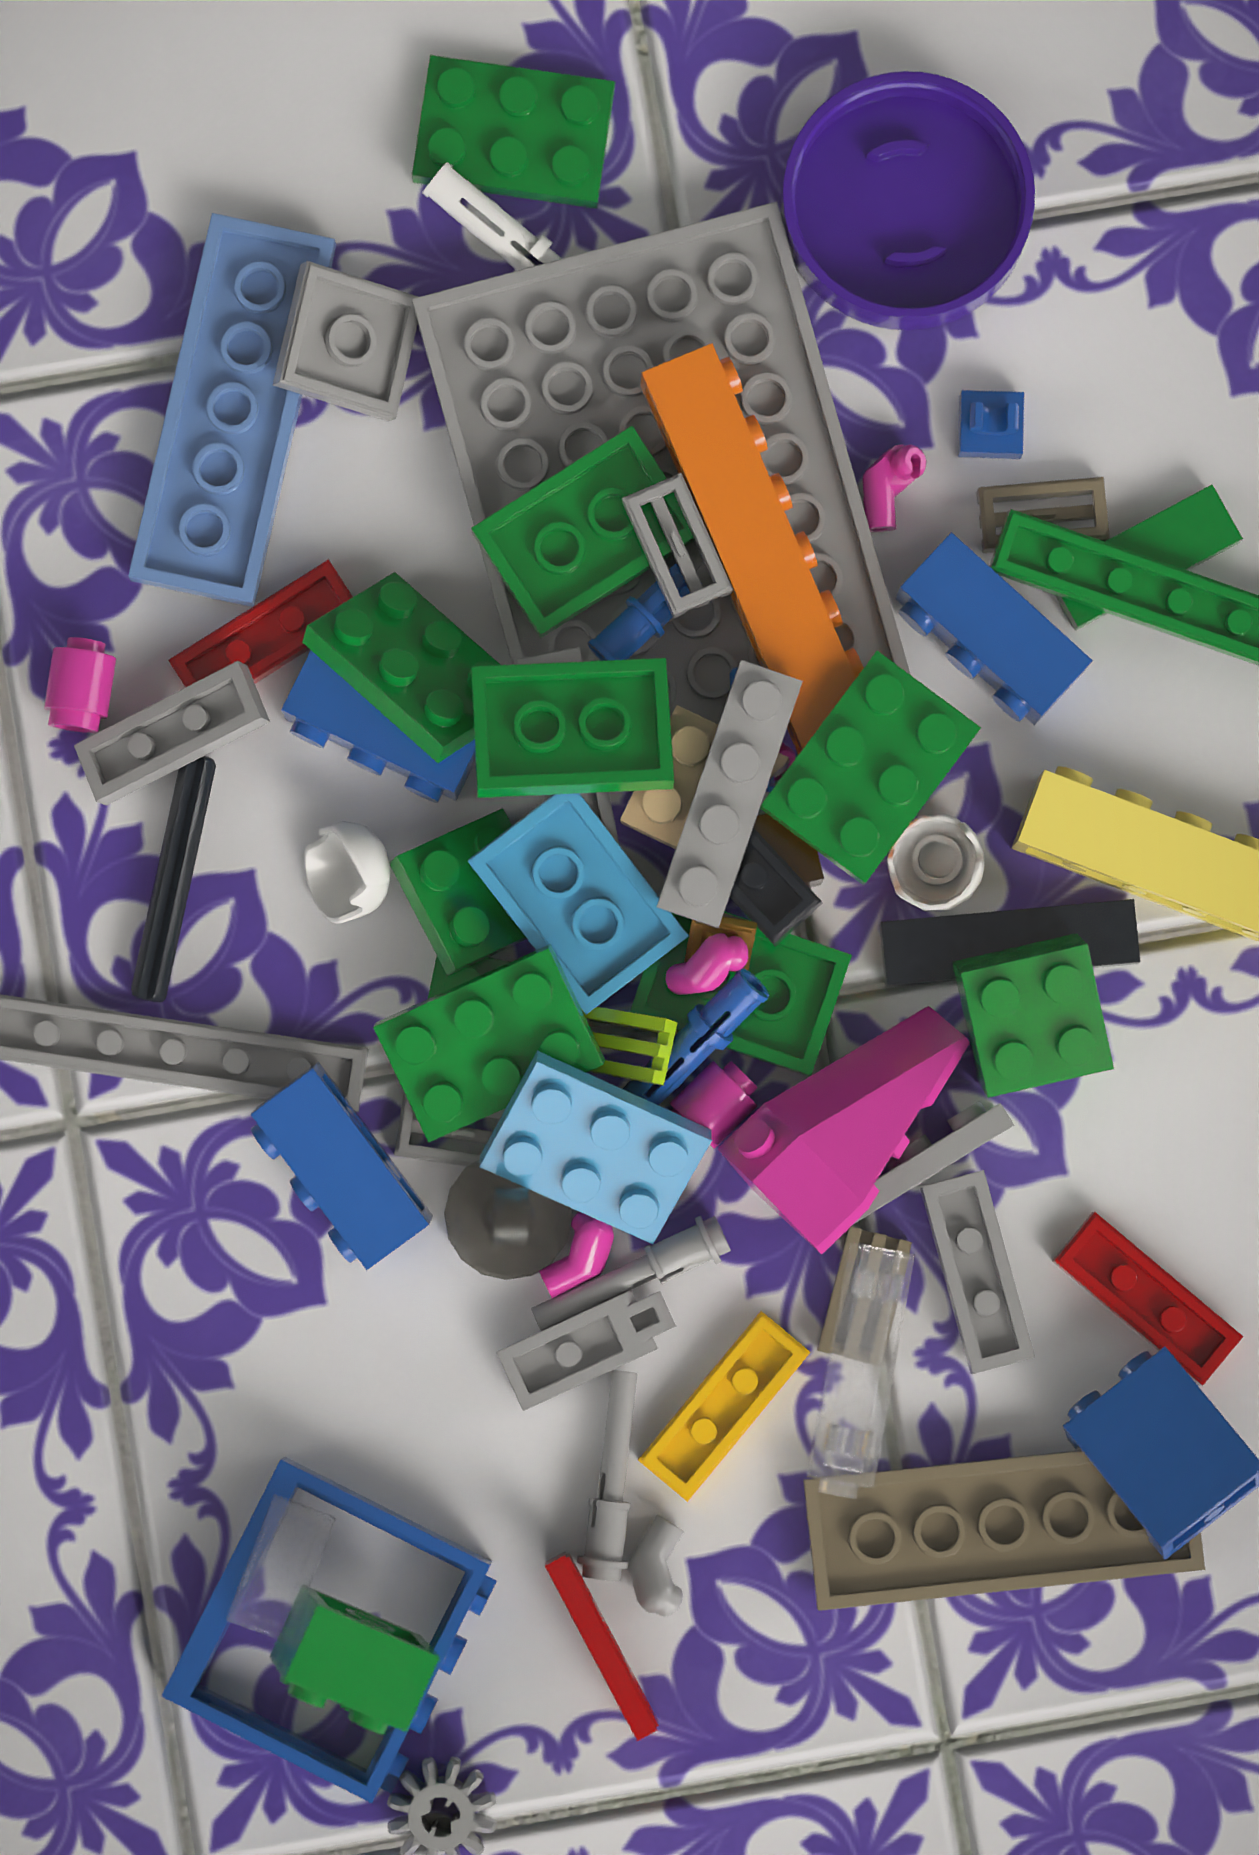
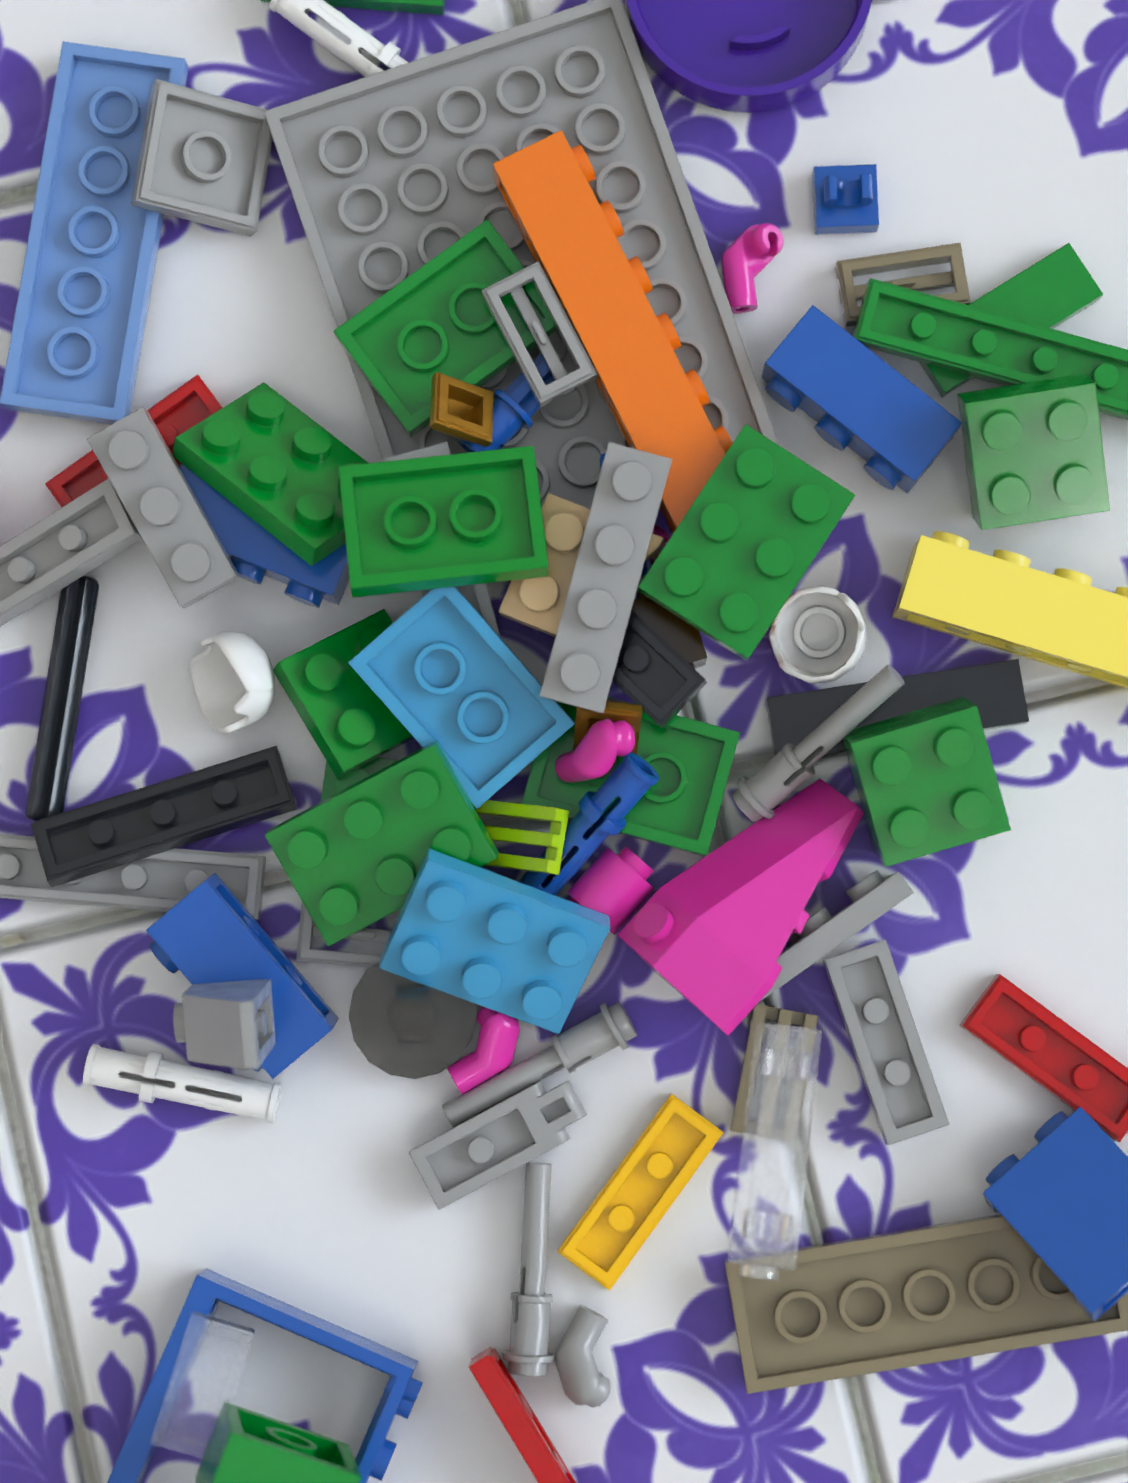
camera: 10 degrees right, 0 degrees up
(199, 1252) = (181, 1083): none -> white pin
(270, 1002) = (163, 816): none -> black tile
(290, 694) = (163, 507): none -> light grey plate
(327, 1210) = (226, 1023): none -> light grey slope
(595, 616) = (461, 410): none -> pearl gold slope
(904, 989) = (794, 764): none -> light grey pin
(1161, 693) = (1034, 451): none -> brick

